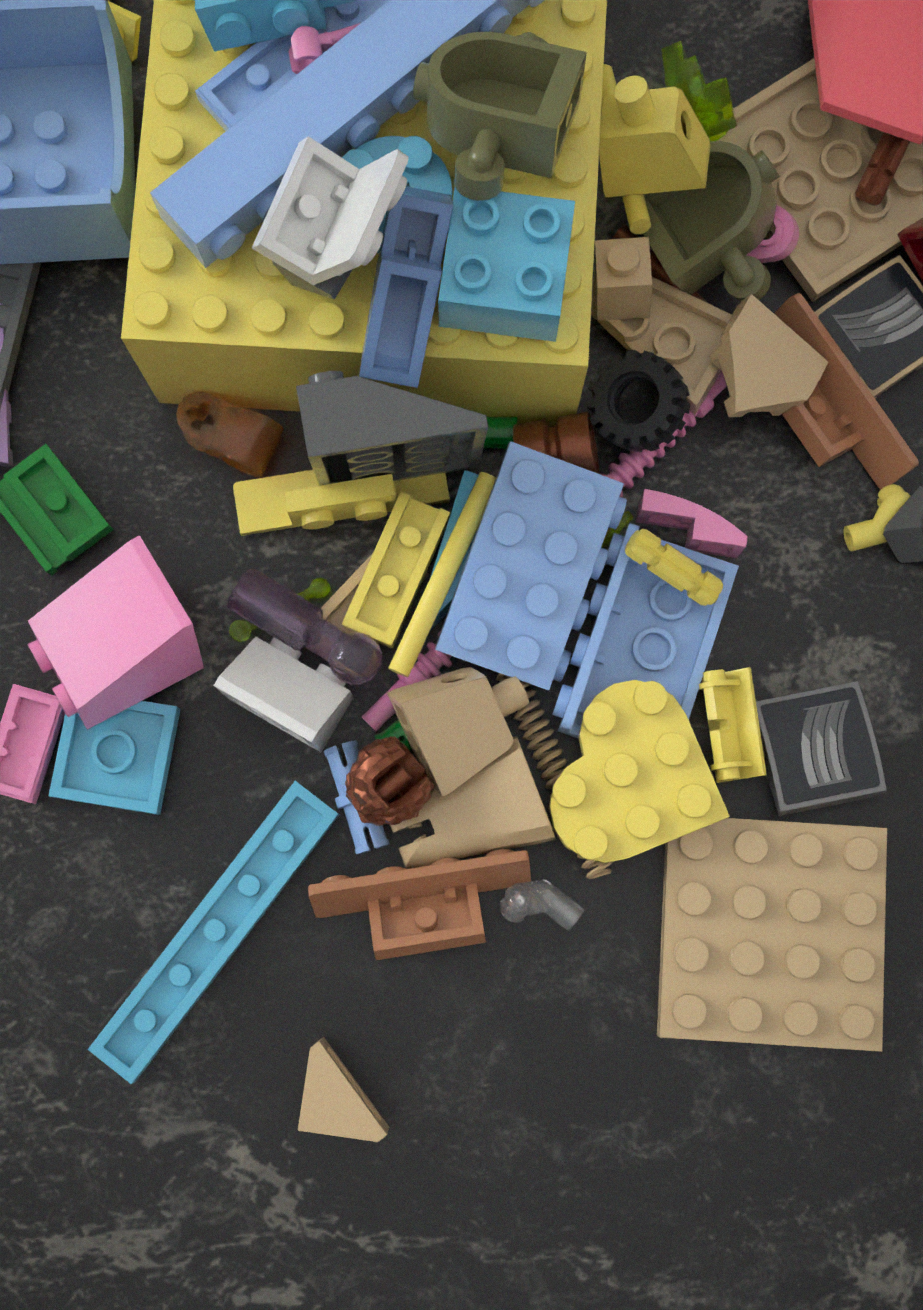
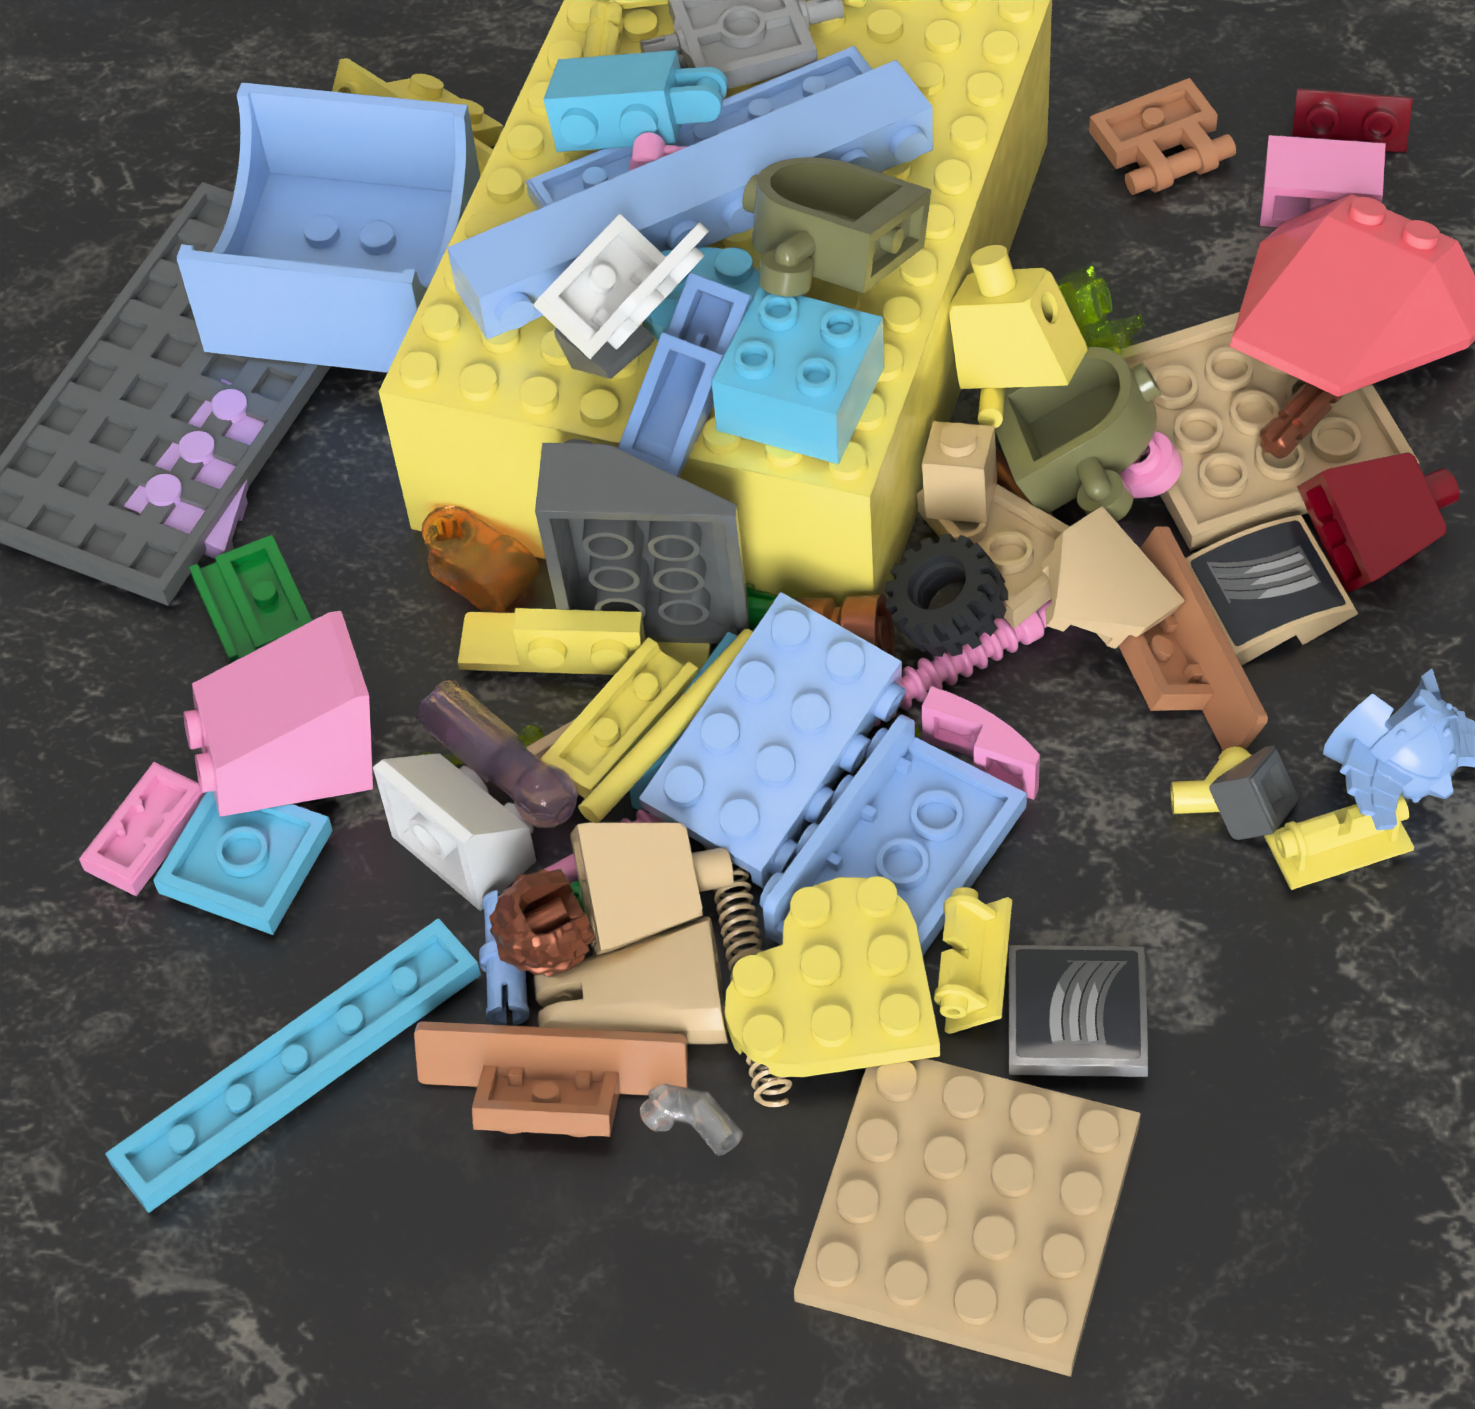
camera: 20 degrees right, 25 degrees down
(335, 1101) = (371, 1276): tan slope -> none
(673, 567) = (942, 767): light yellow axle -> none

